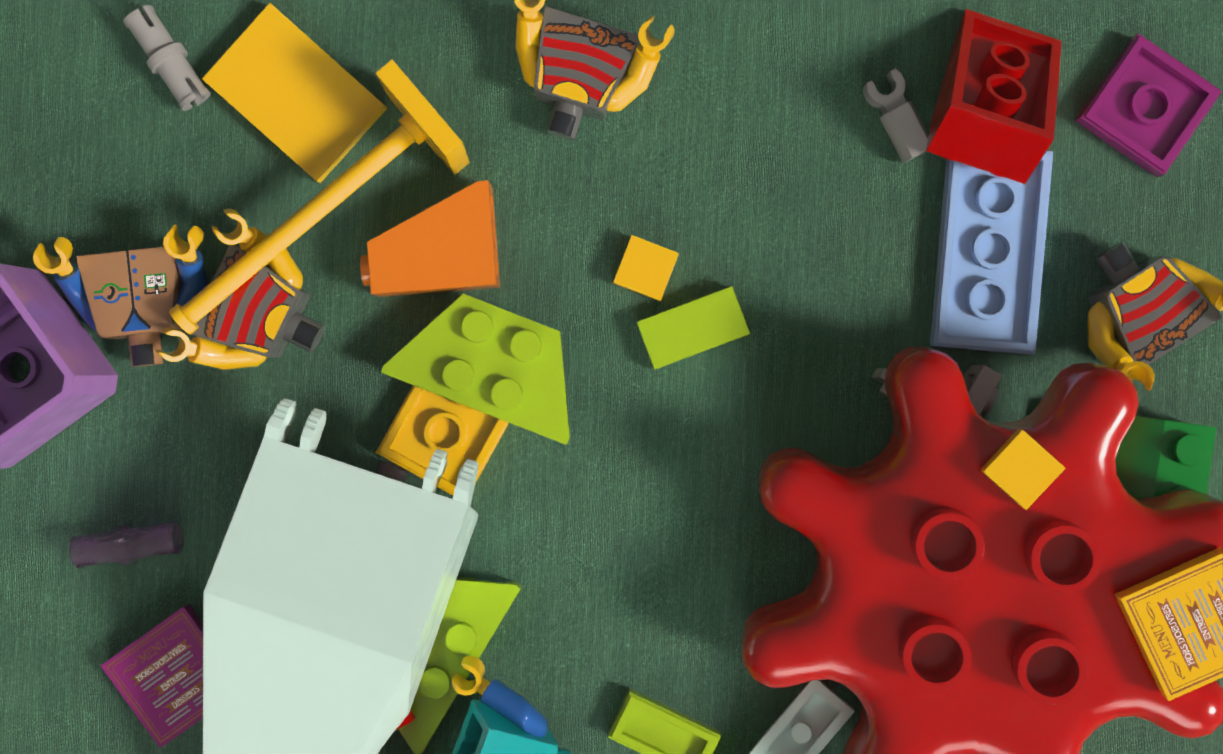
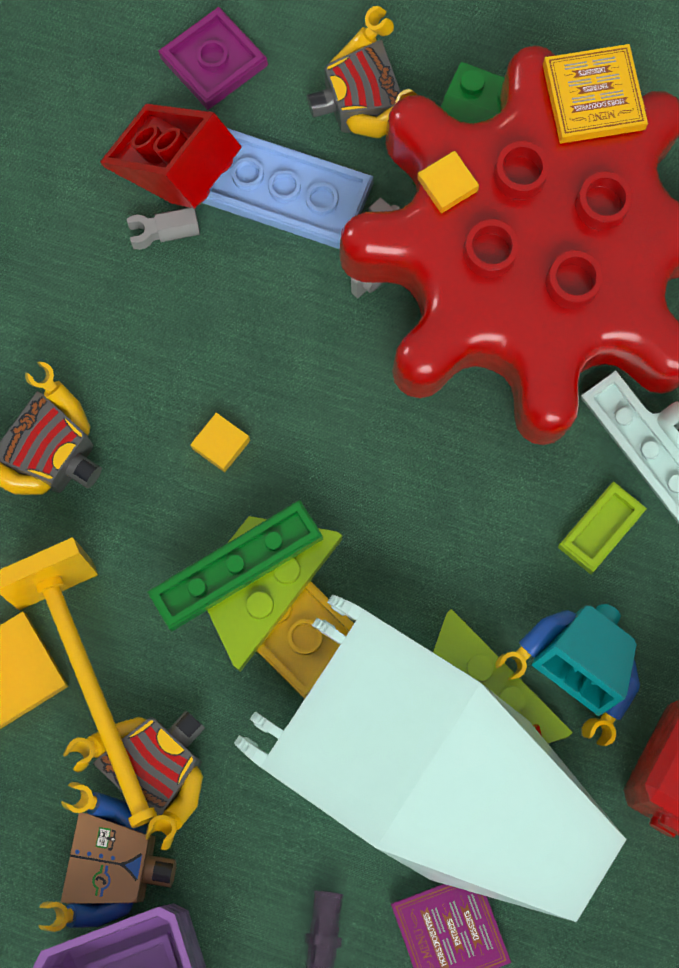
camera: 70 degrees left, 15 degrees down
(438, 249) = (136, 571): orange slope -> none
(492, 335) = (235, 565): none -> green tile
(693, 328) = (278, 419): lime tile -> none

